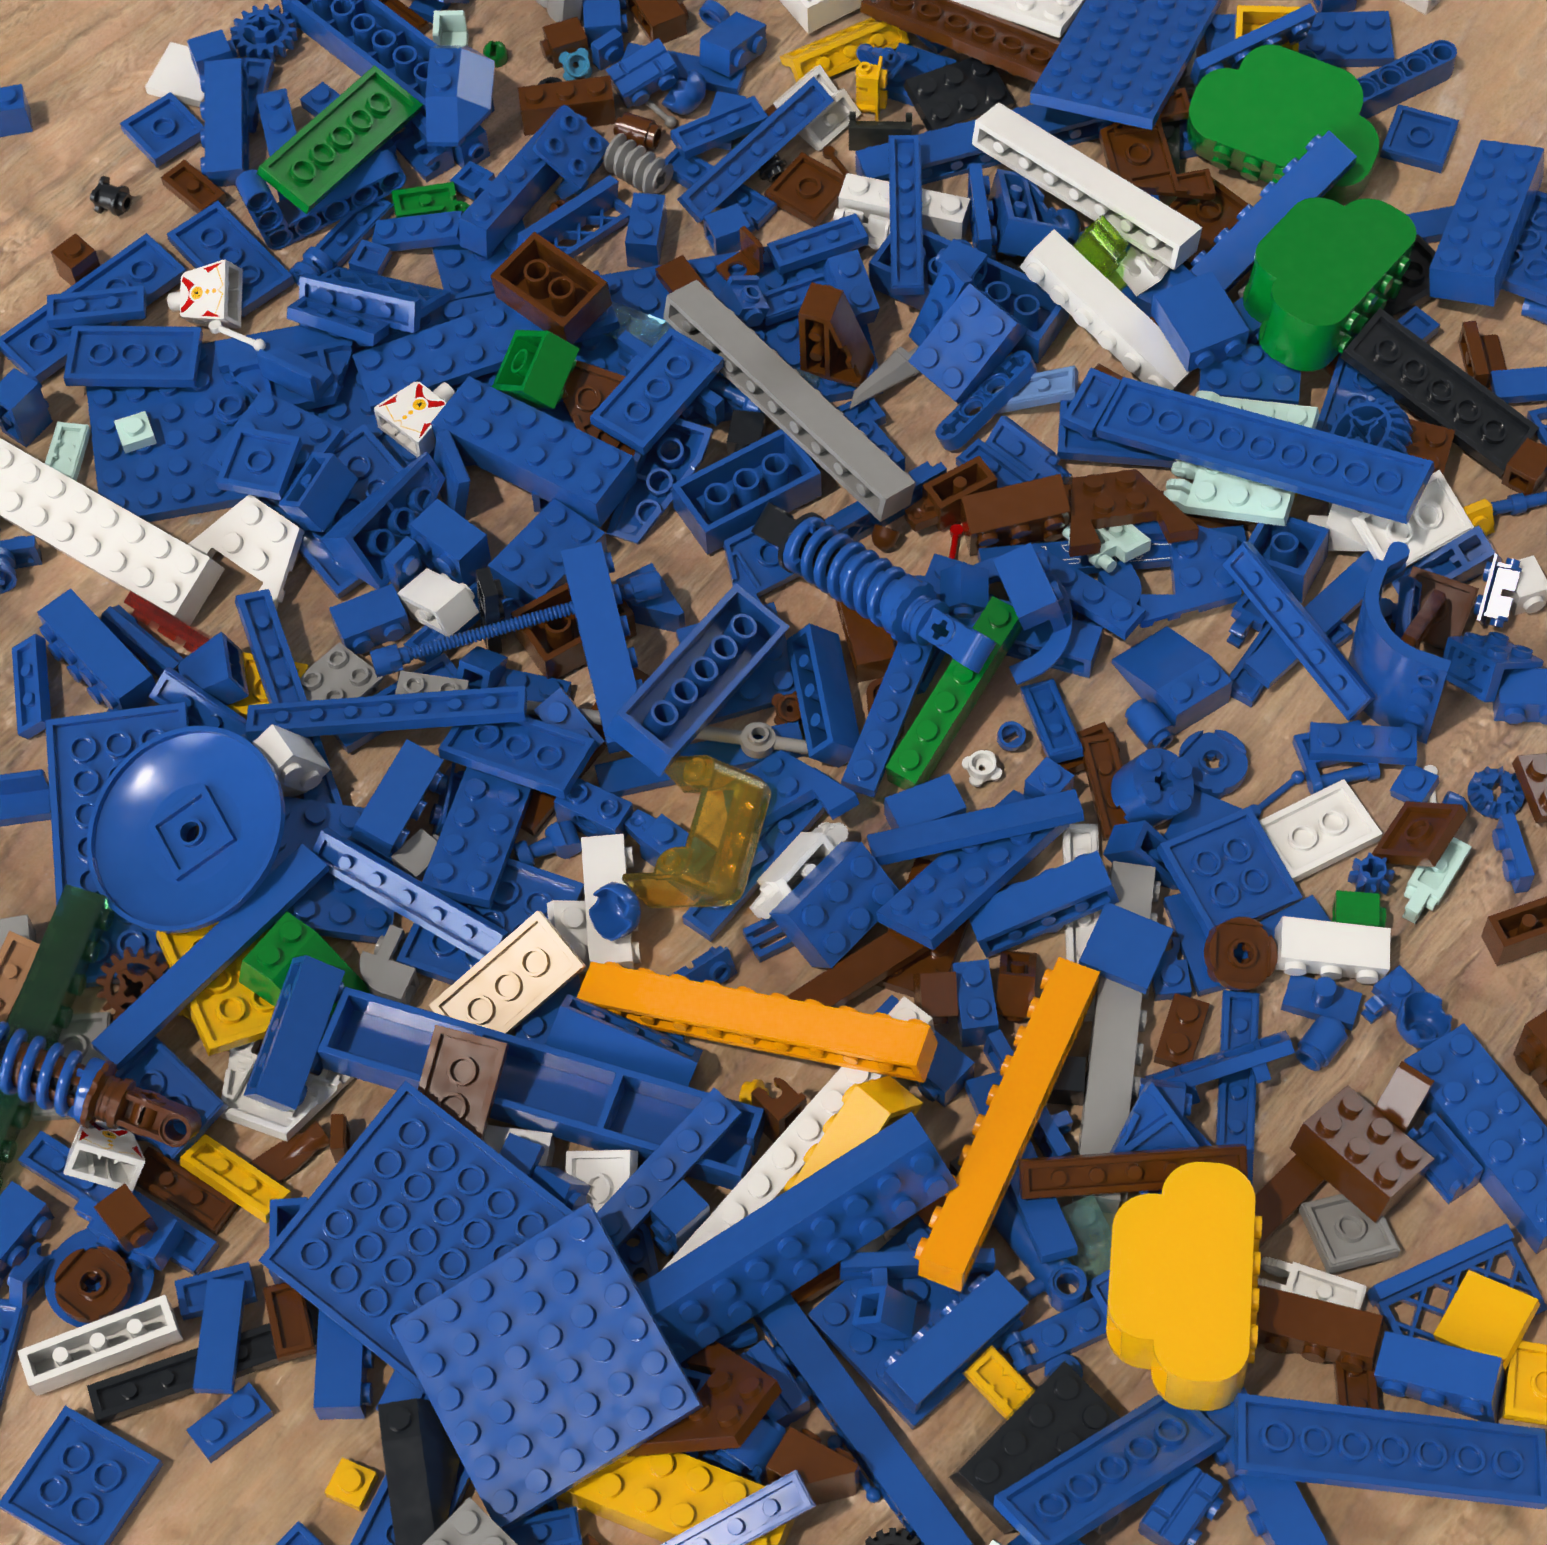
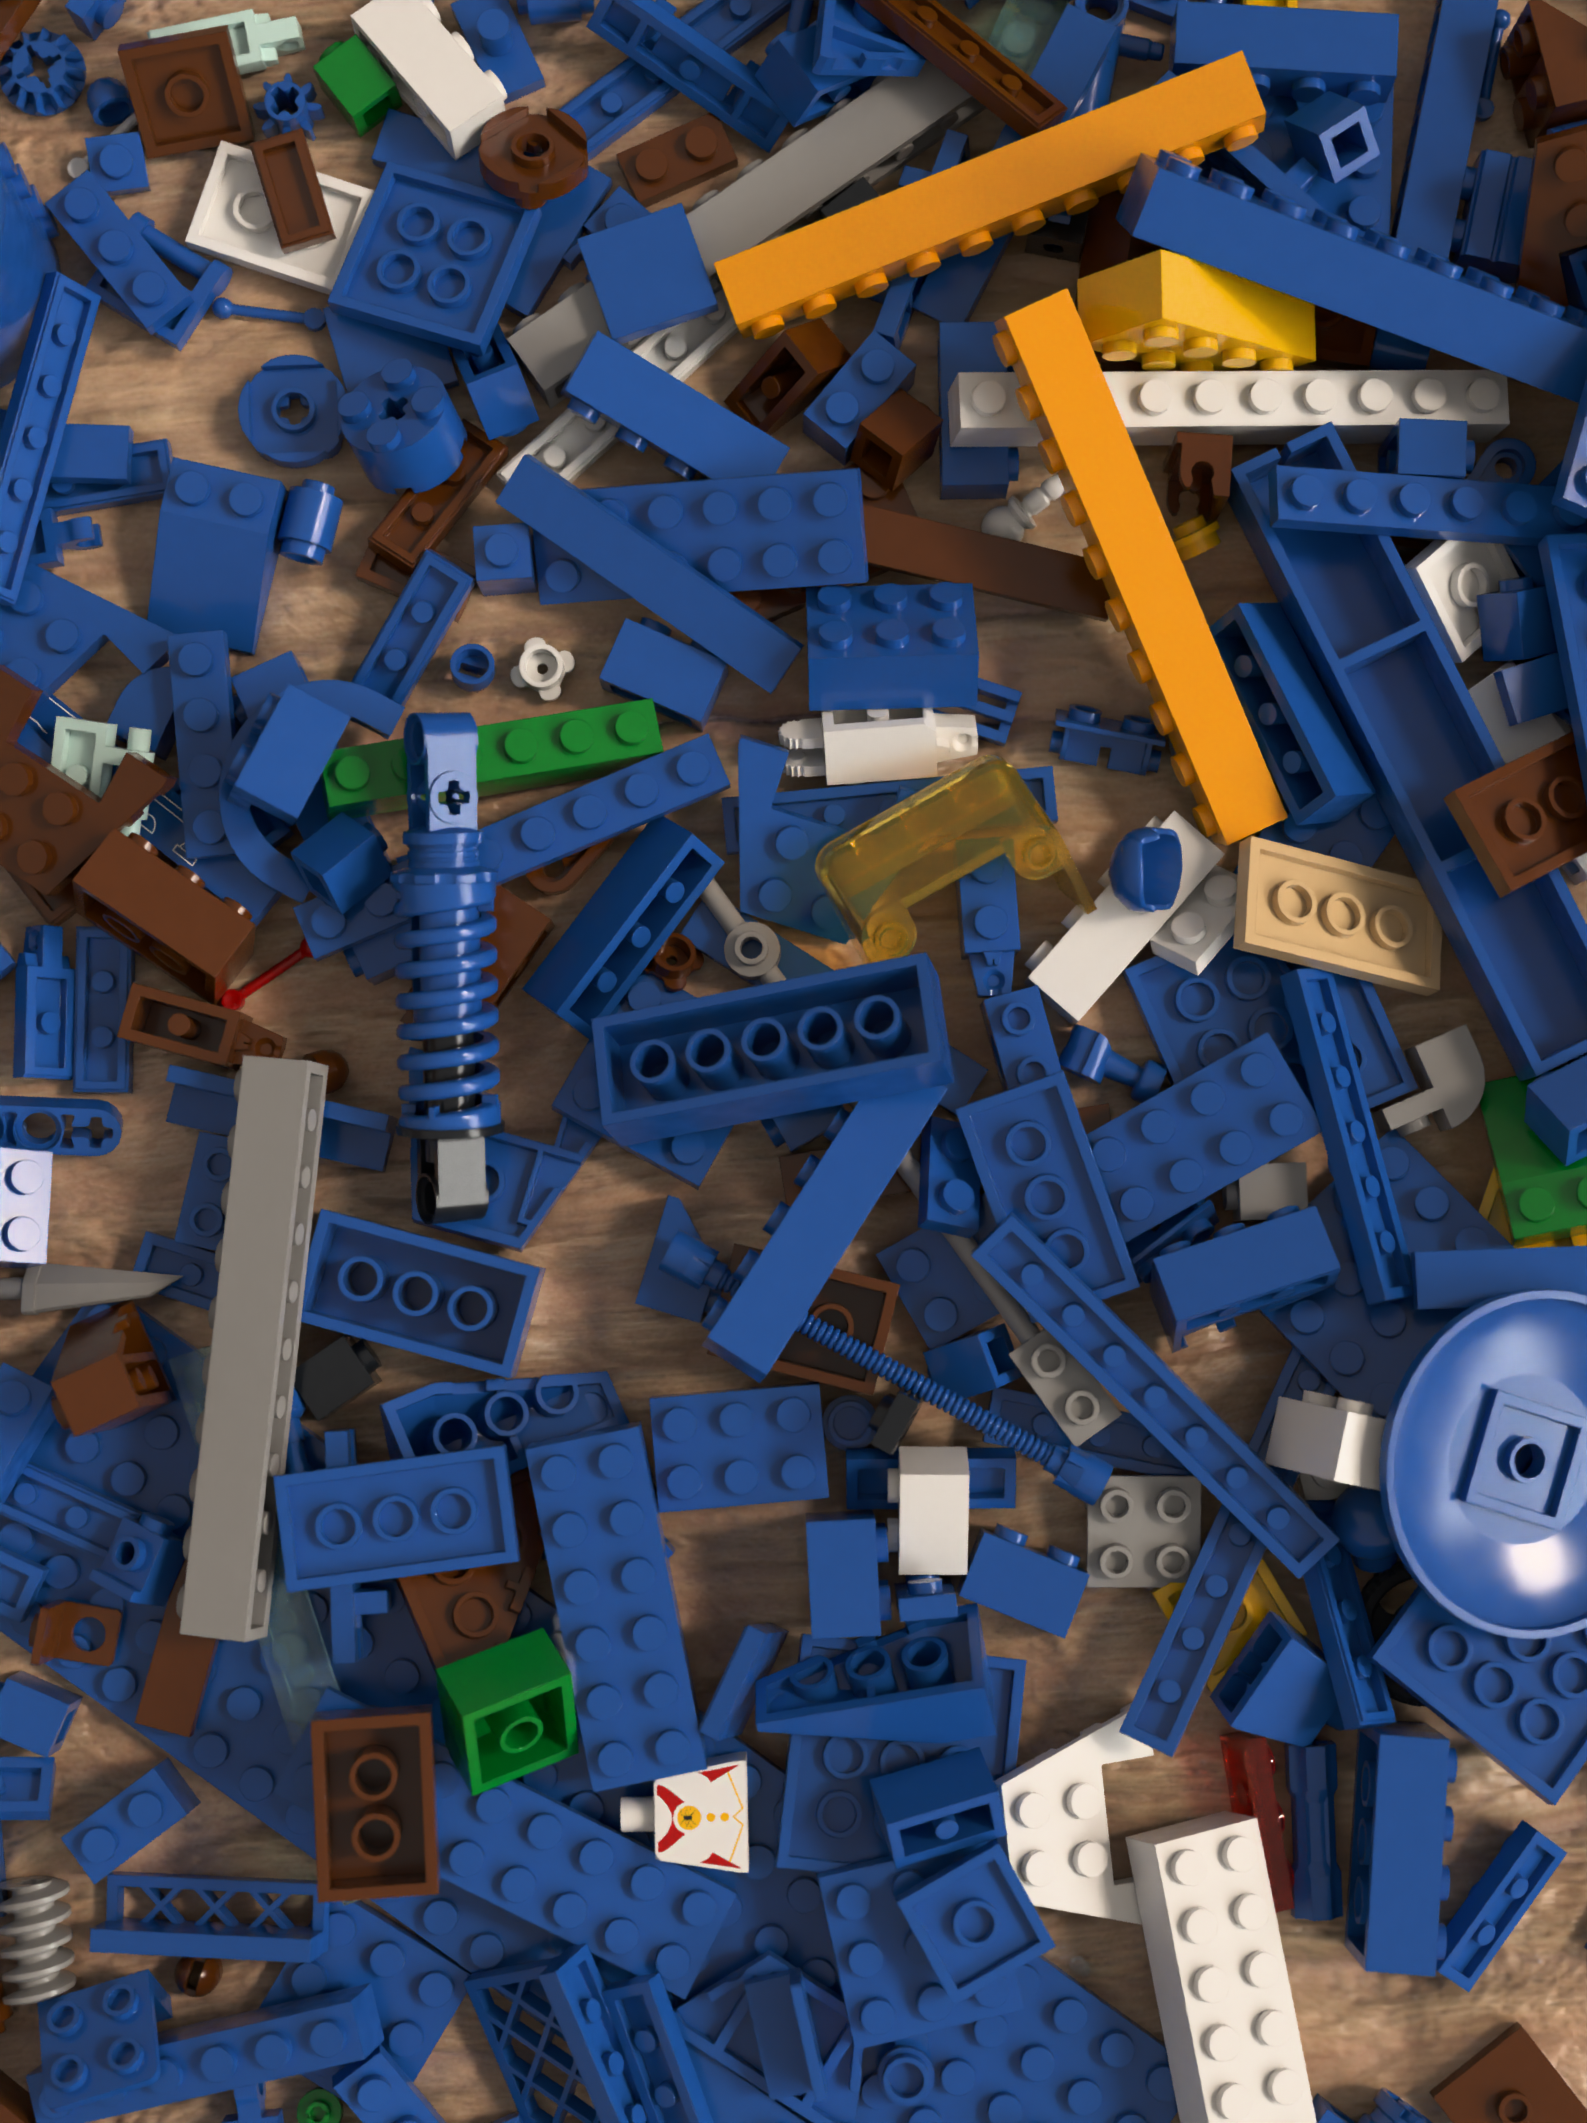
camera: 135 degrees left, 25 degrees up
(1323, 838) = (292, 191): none -> reddish brown tile

